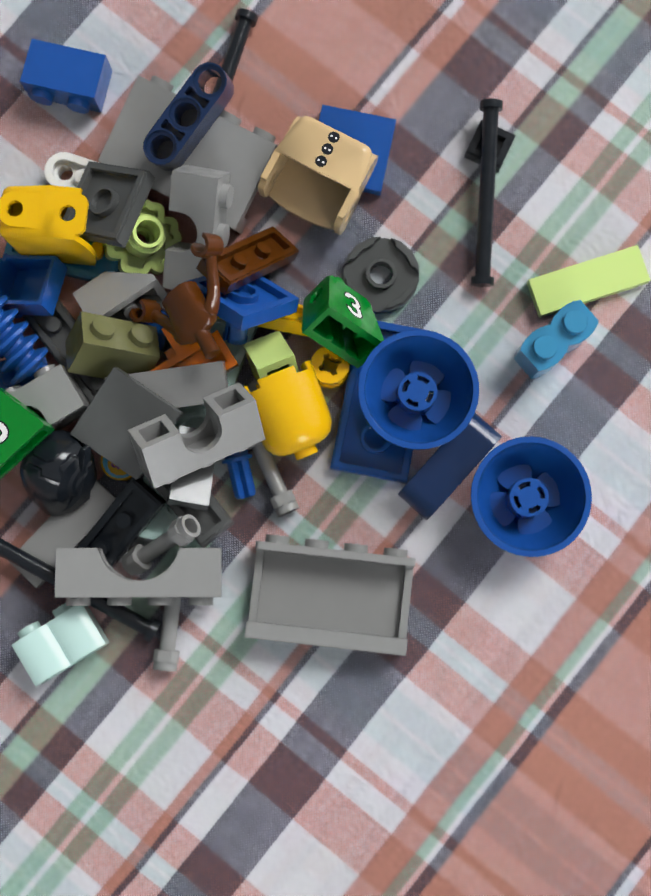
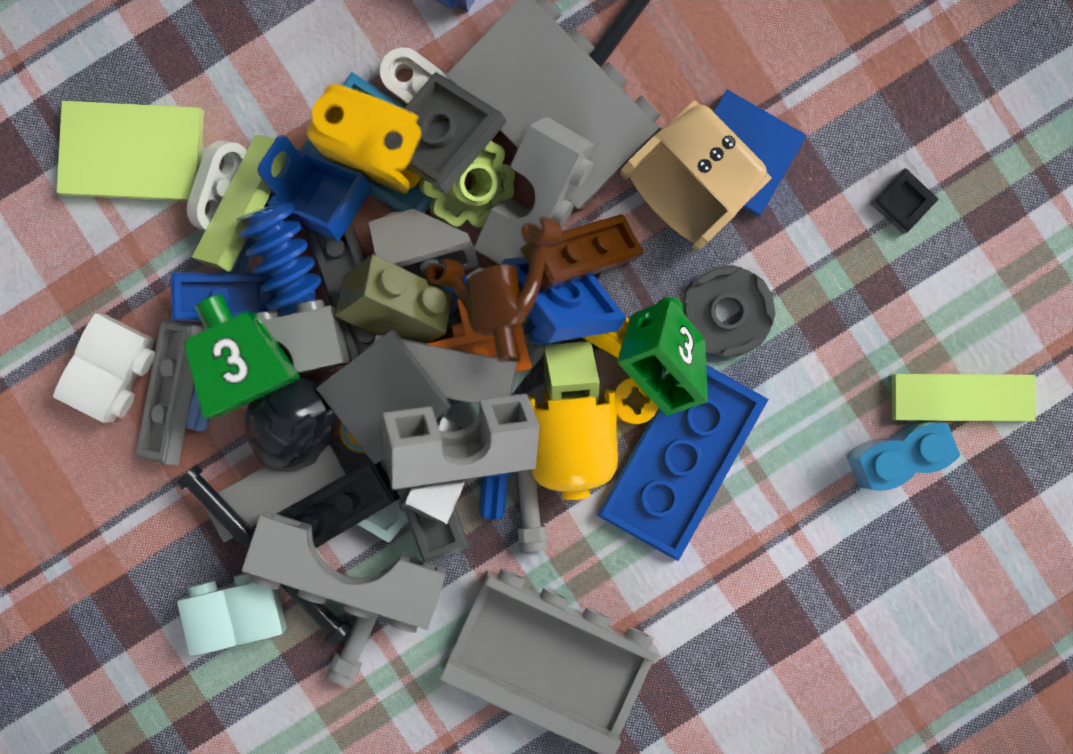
camera: 15 degrees right, 5 degrees up
(180, 532) = (406, 541): light grey bar -> none
(189, 97) = (544, 66): dark blue beam -> none
(410, 369) = (755, 468): blue piece -> none
(449, 467) = (733, 558): dark blue beam -> none
(490, 109) = (883, 255): black bar -> none
(541, 478) = (832, 649): blue piece -> none

